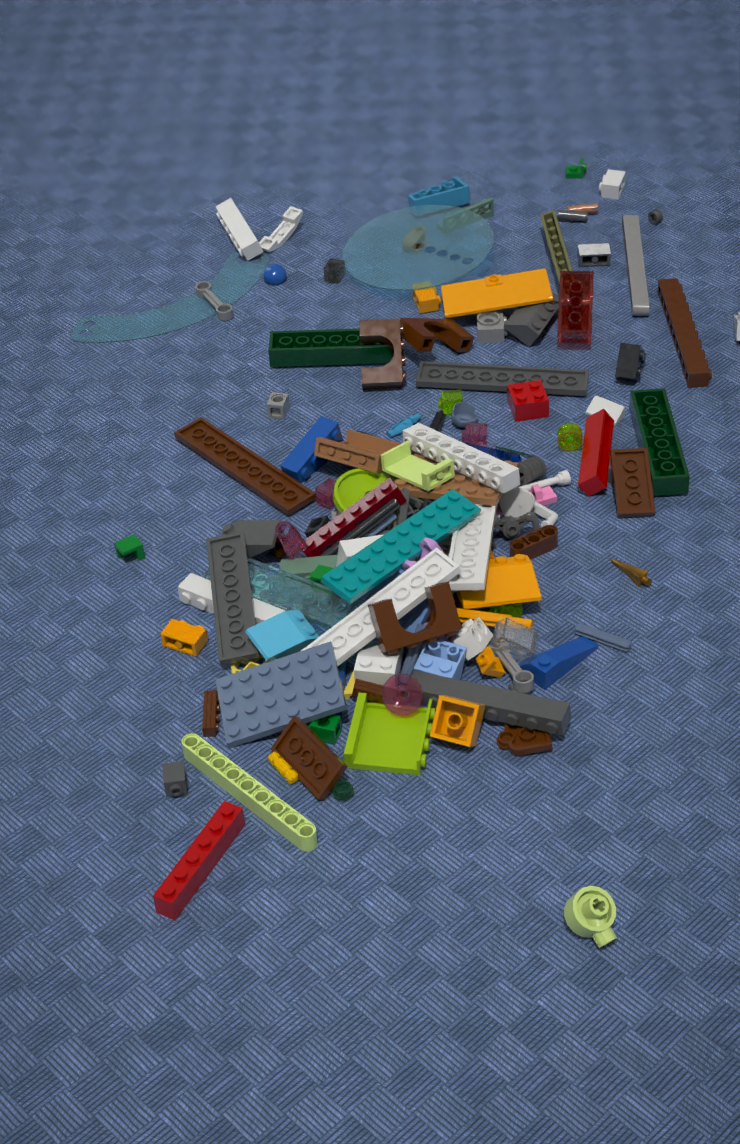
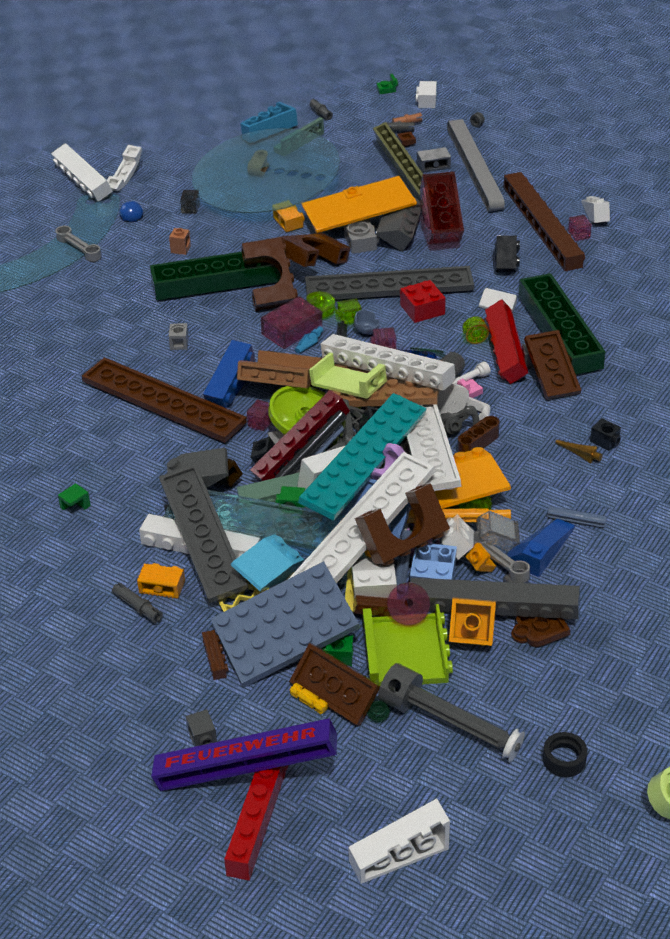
camera: 15 degrees left, 0 degrees up
(159, 658) = (142, 606): none -> dark grey pin
(200, 806) = (245, 754): none -> dark purple brick
(250, 792) = (263, 718): yellowish green beam -> none
(292, 541) = (245, 467): clear pink piece -> none
(310, 310) = (180, 241): none -> nougat brick
(318, 911) = (401, 842): none -> white wedge
(371, 773) = (403, 689): none -> dark grey piece
(390, 404) = (290, 322): none -> clear pink brick
(425, 391) = (323, 301): none -> clear neon green piece
(498, 188) = (321, 109): none -> dark grey pin
(503, 873) = (564, 768): none -> black tyre
(574, 229) = (406, 138): none -> reddish brown plate
(662, 560) = (605, 434): none -> black brick
(718, 344) = (579, 227): none -> clear pink brick

